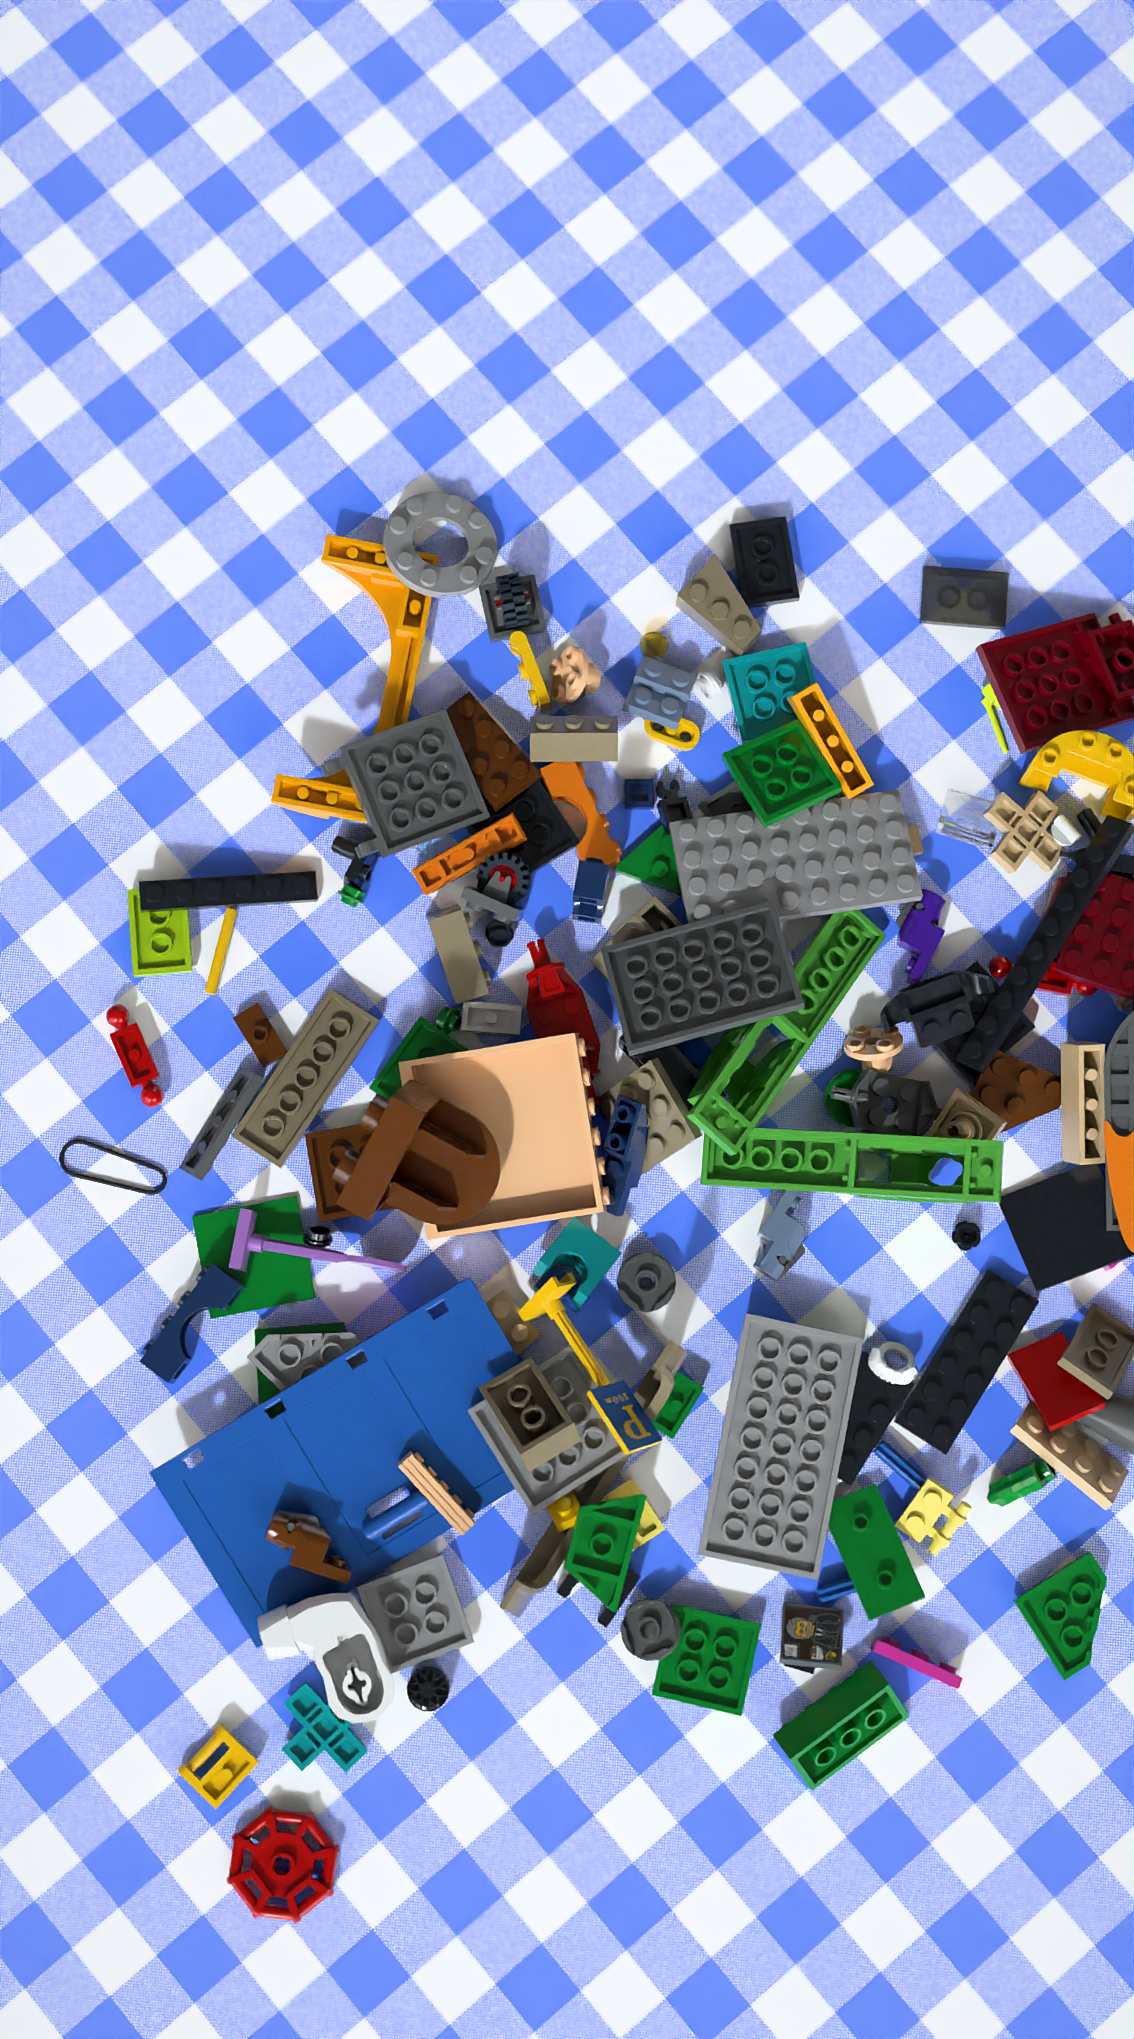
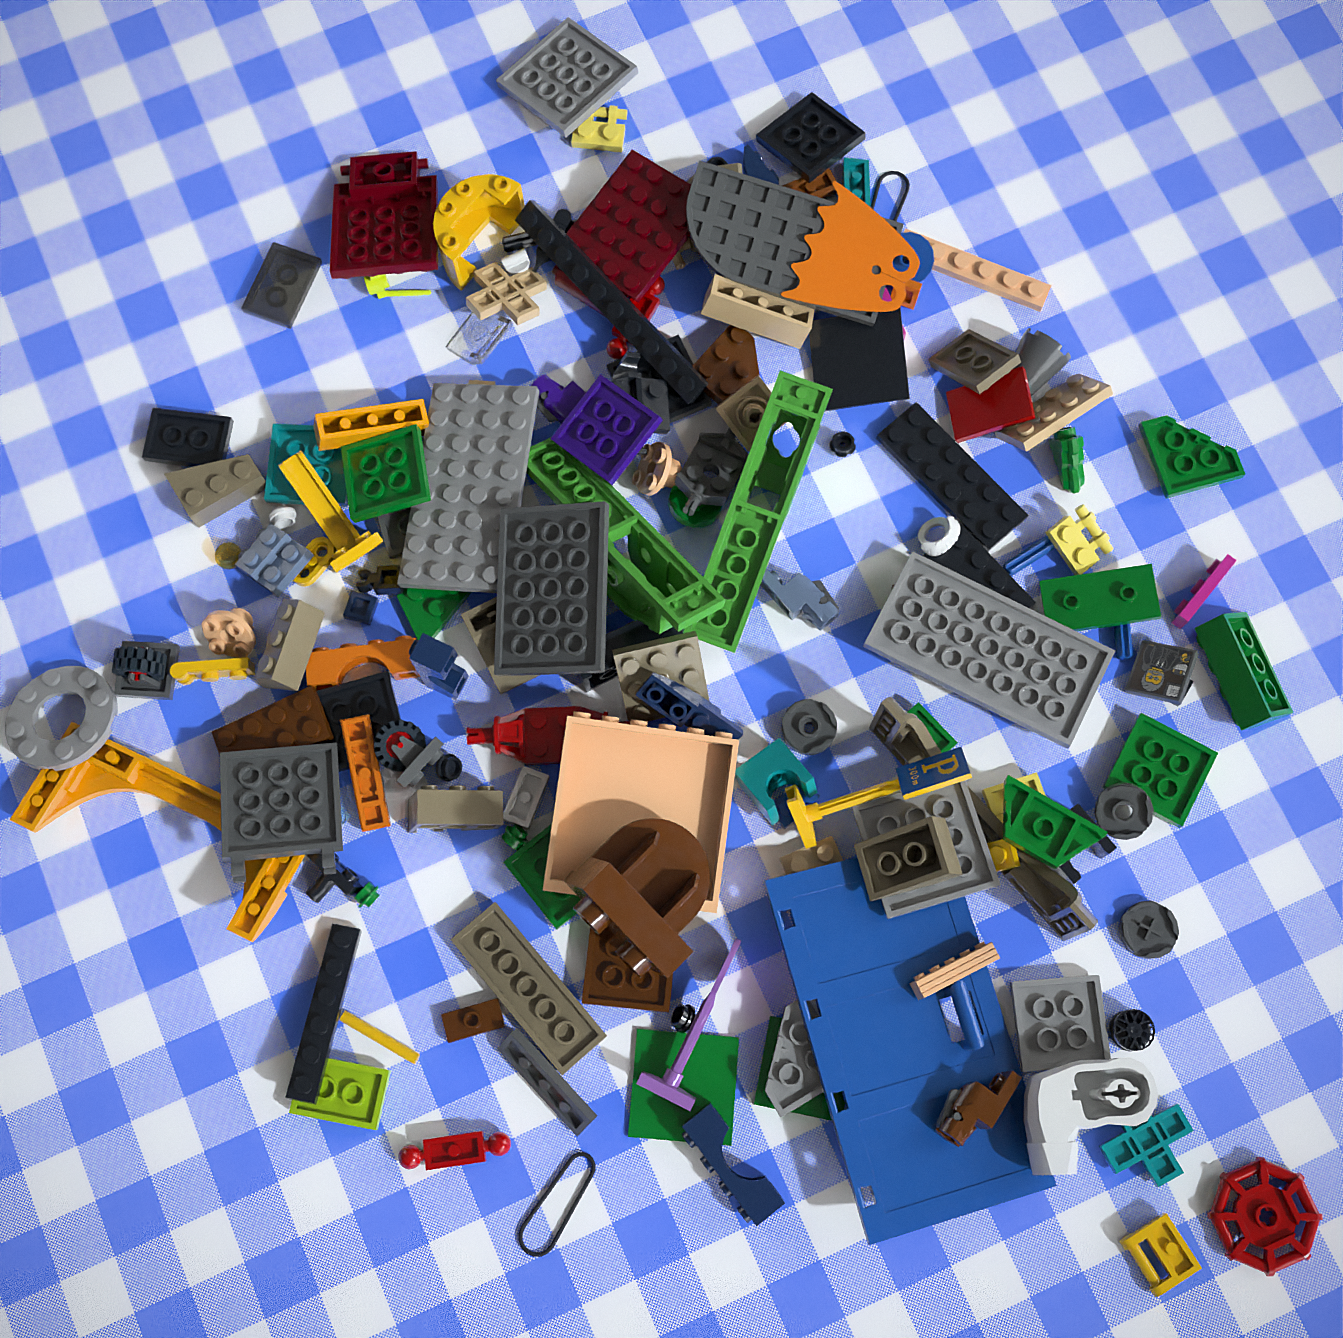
camera: 70 degrees left, 5 degrees down
(536, 1685) = (1148, 930): none -> dark grey tile
(720, 734) = (328, 513): none -> yellow bracket
(896, 982) = (606, 429): none -> dark purple plate

